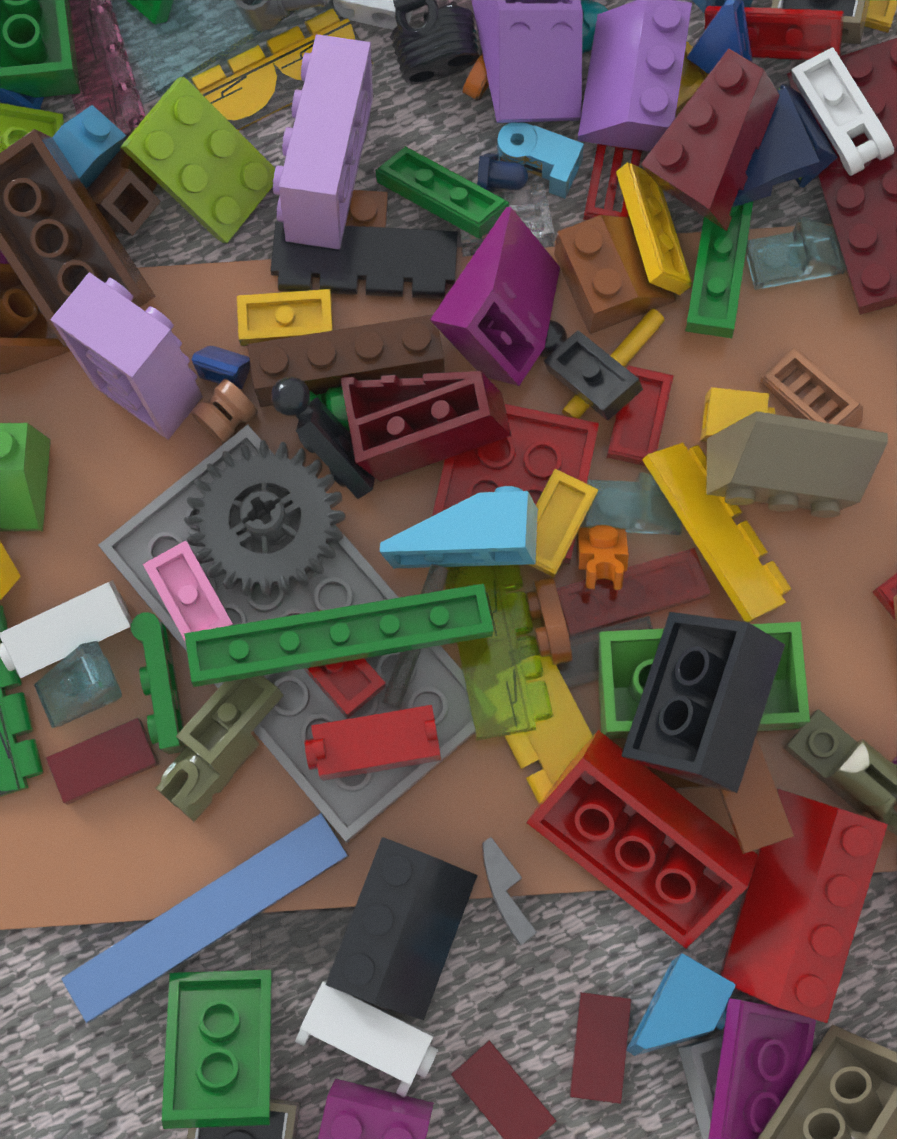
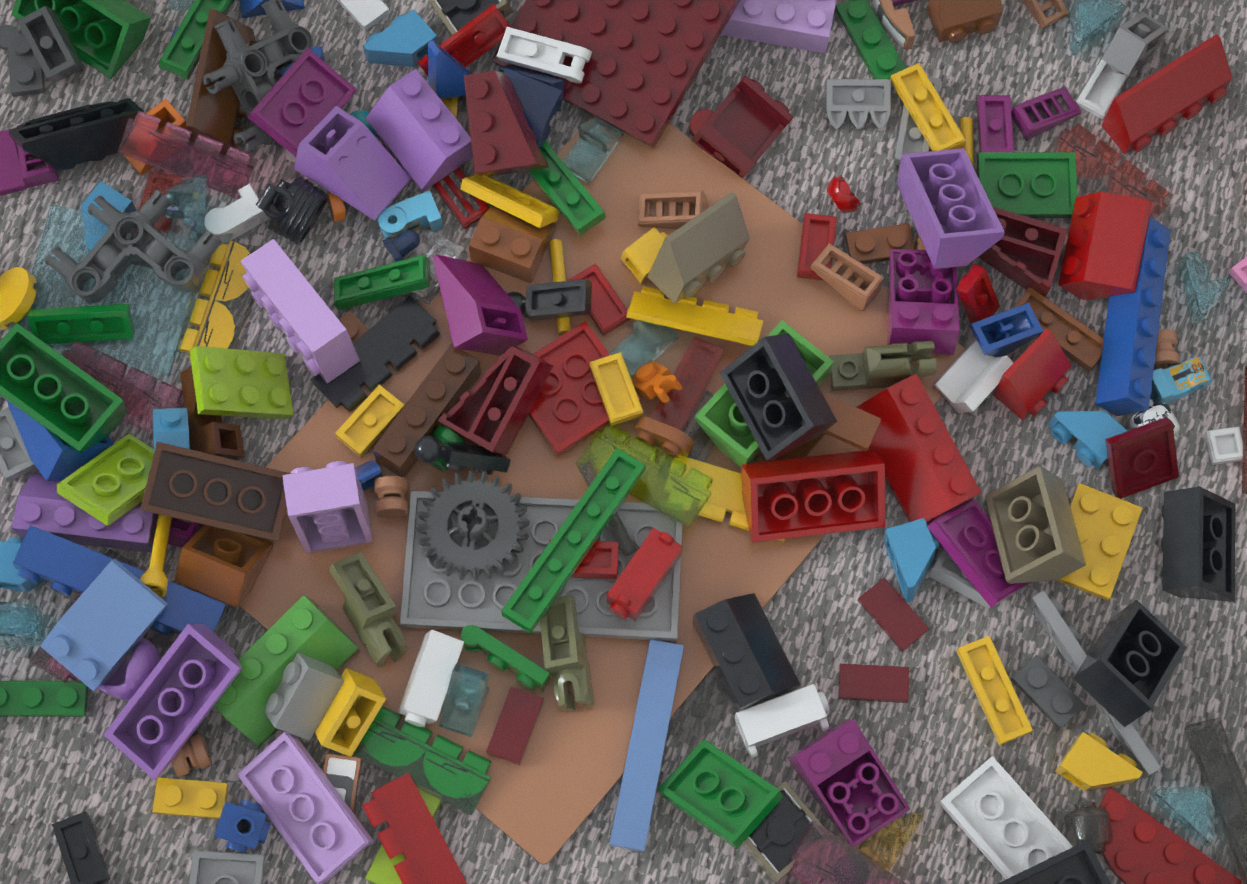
camera: 50 degrees left, 5 degrees down
(84, 496) = (369, 608): none -> olive plate
(186, 590) = (474, 598): bright pink plate -> none
(475, 532) = (586, 427): medium azure slope -> none
(500, 877) = (765, 580): flat silver slope -> none

